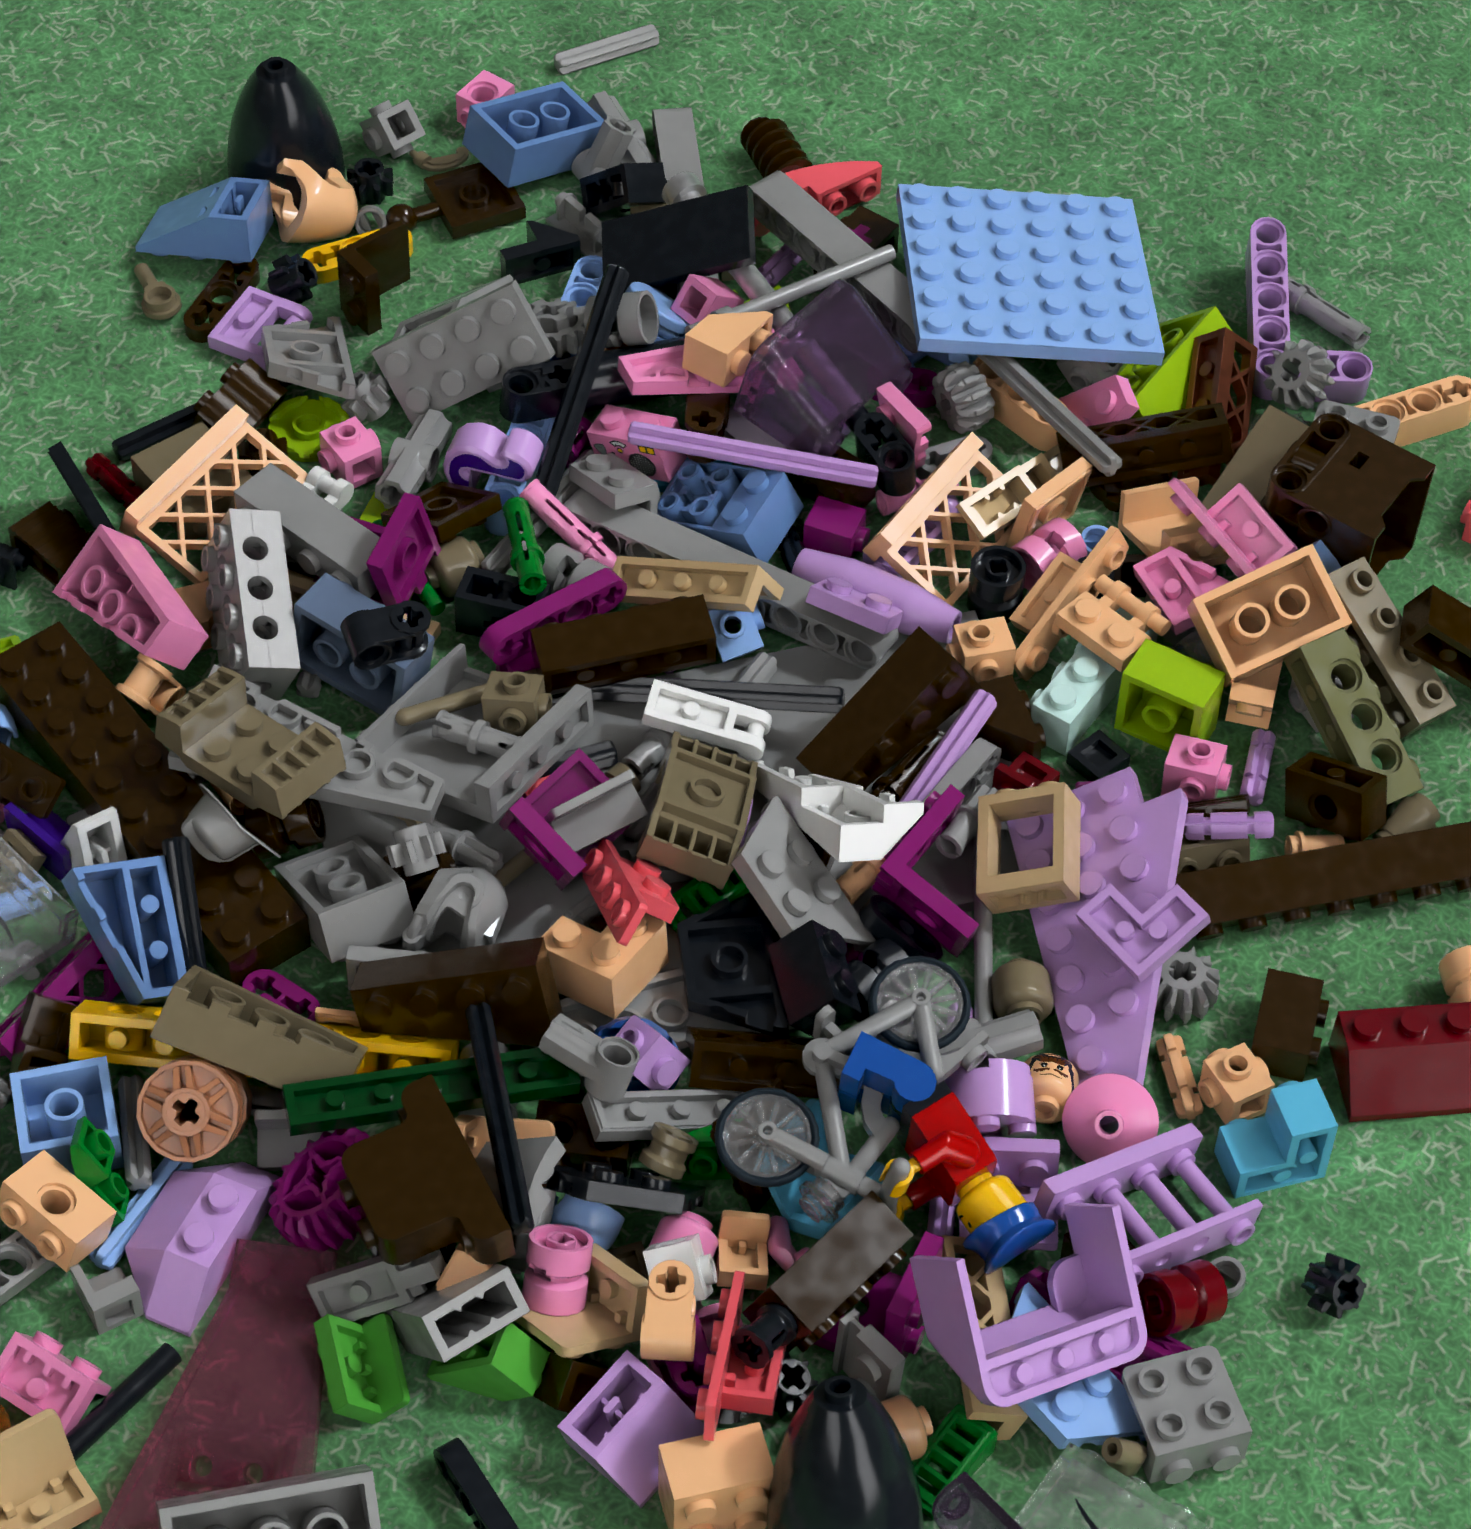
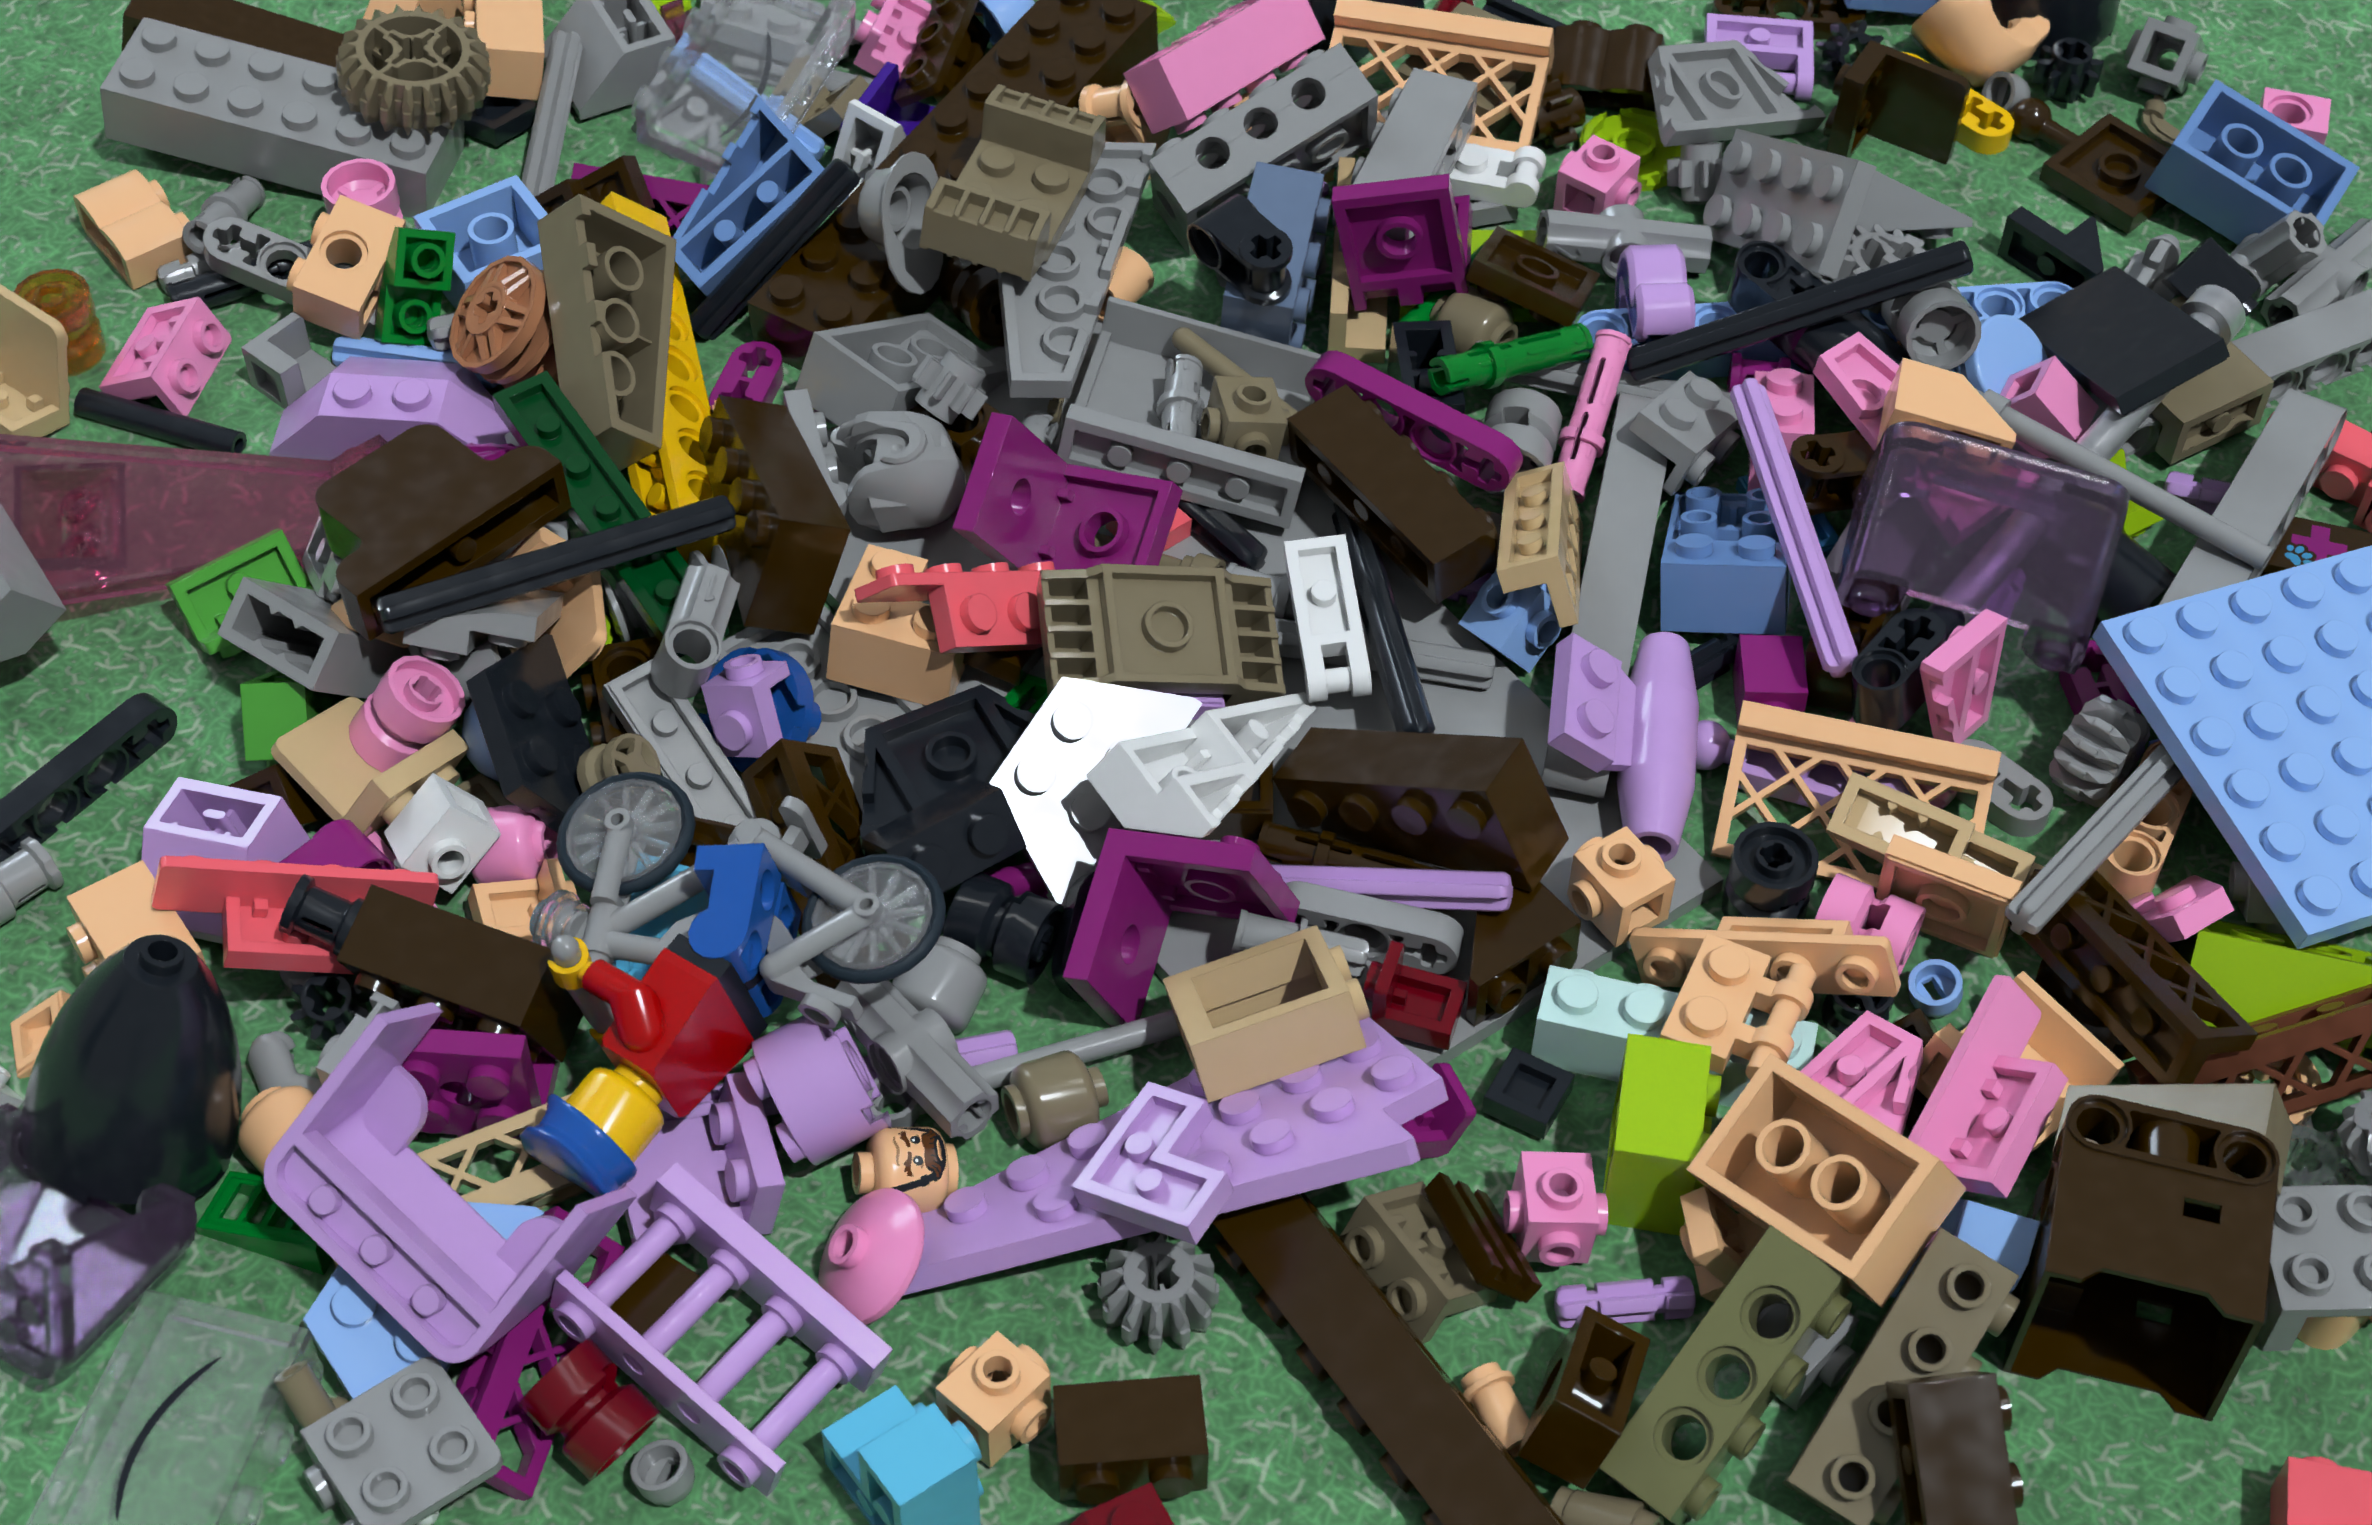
camera: 70 degrees right, 0 degrees up
(598, 812) = (1091, 534): light grey panel -> none
(669, 1314) = (329, 819): light nougat piece -> none
(1179, 1076) = (1020, 1325): light nougat axle -> none
(1229, 825) = (1447, 1262): lavender axle -> none

